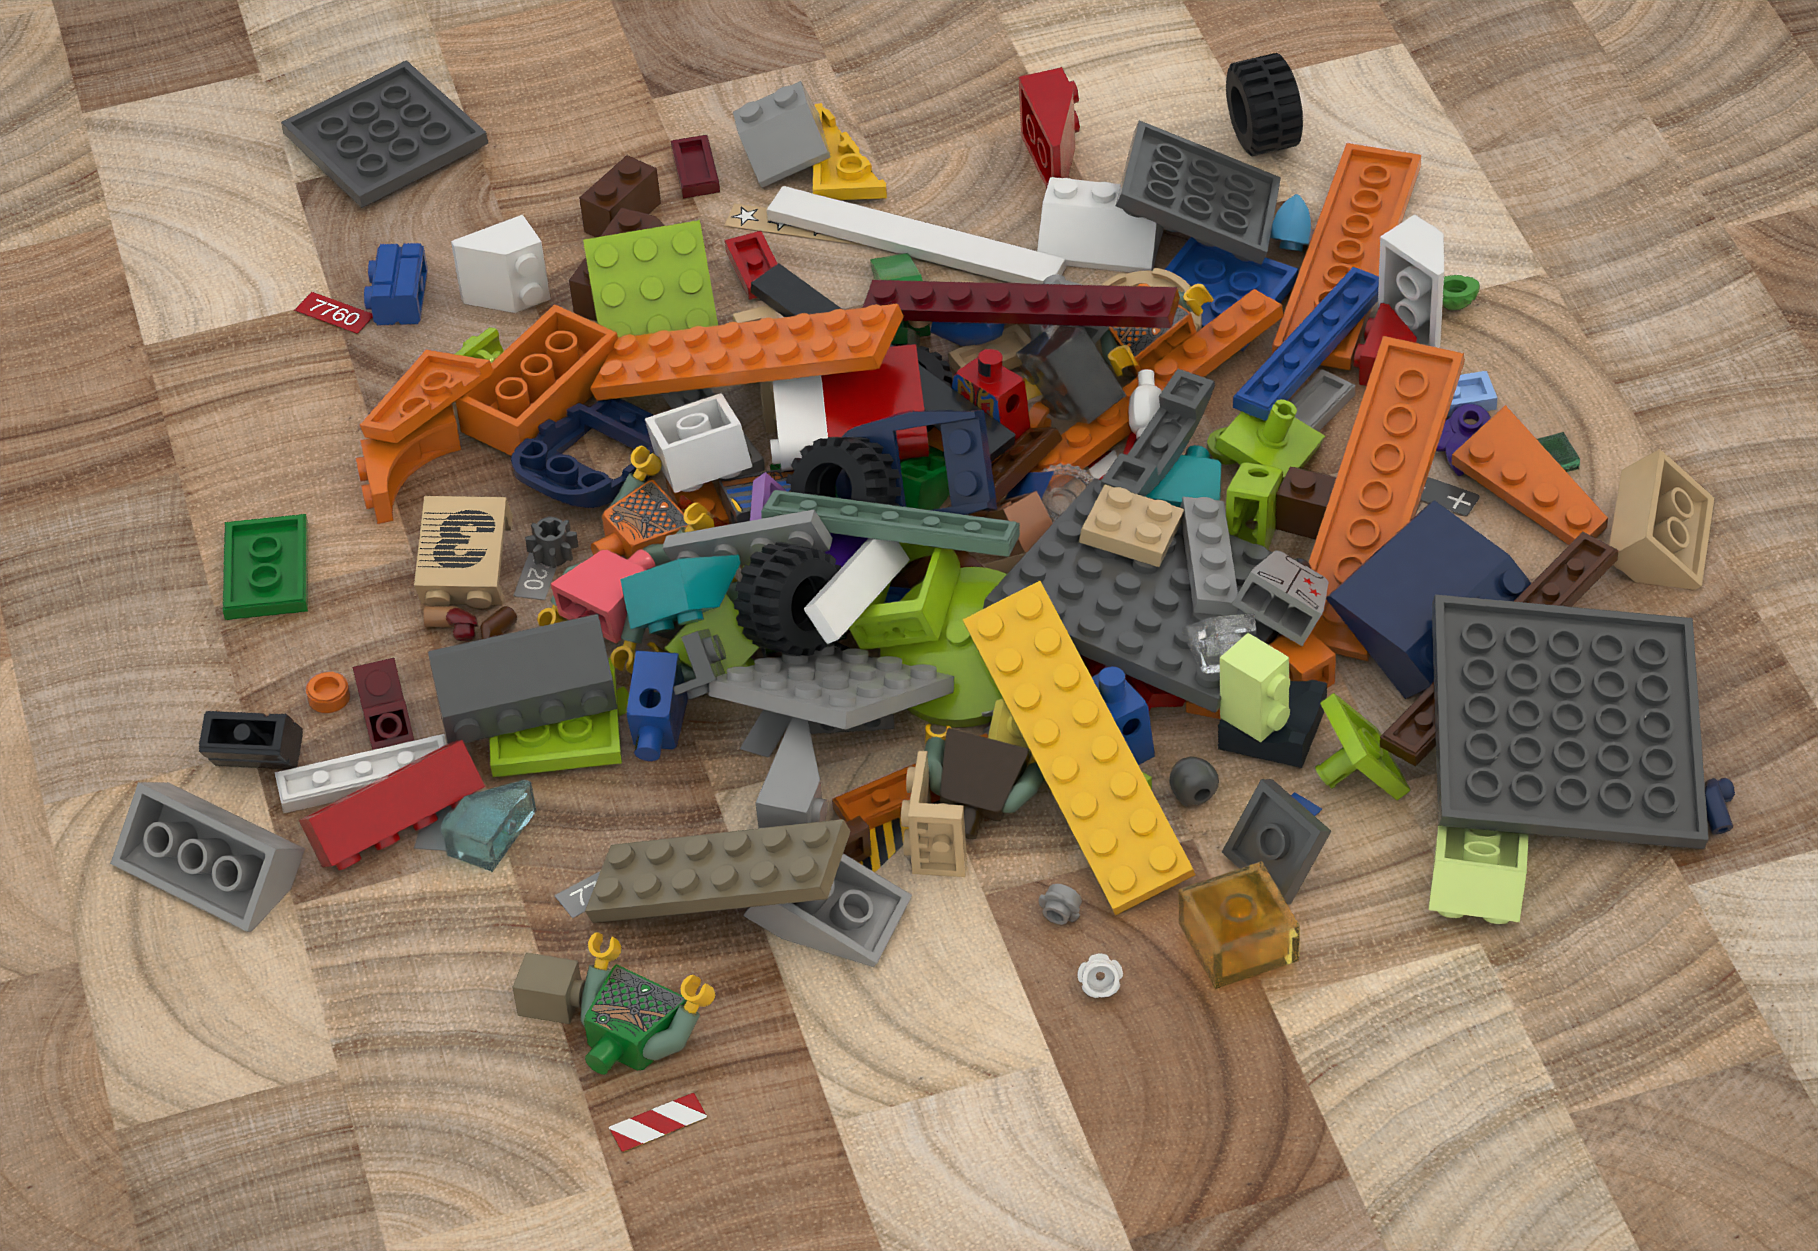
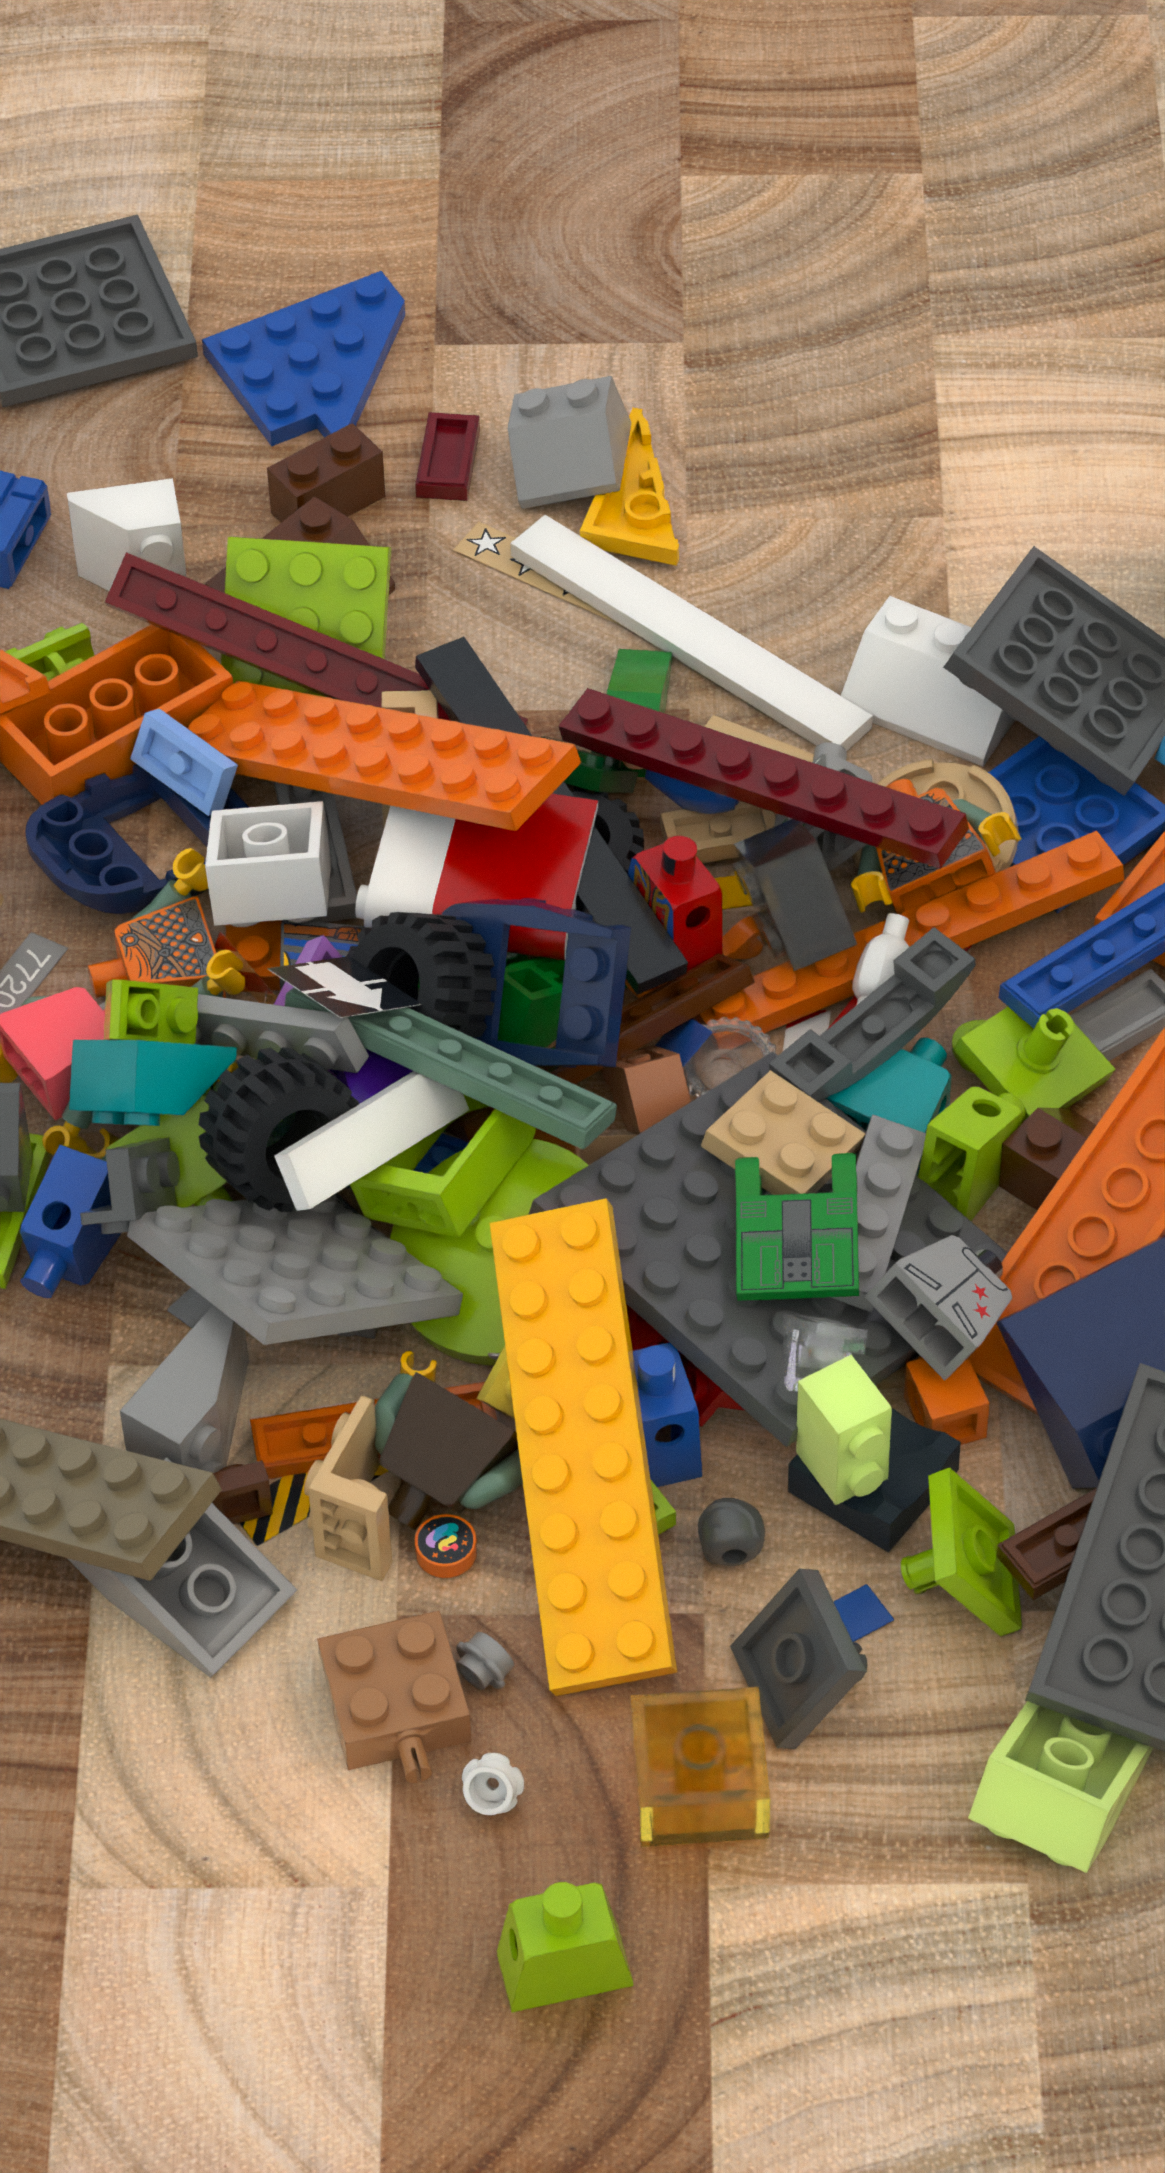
camera: 15 degrees right, 5 degrees up
(551, 541) = (41, 948): dark grey gear -> none
(568, 127) = (311, 359): none -> blue wing
(606, 395) = (183, 761): none -> light blue plate
(622, 301) = (257, 636): none -> dark red plate
(663, 543) = (150, 1012): none -> lime slope
(750, 258) = (465, 611): red plate -> none
(800, 495) = (344, 986): none -> sticker
(1001, 842) = (445, 1546): none -> tile
(1010, 938) = (395, 1692): none -> medium nougat plate
(1049, 121) = (926, 516): red slope -> none
(1173, 580) = (796, 1241): none -> green flag
(1194, 1058) = (561, 1947): none -> lime torso

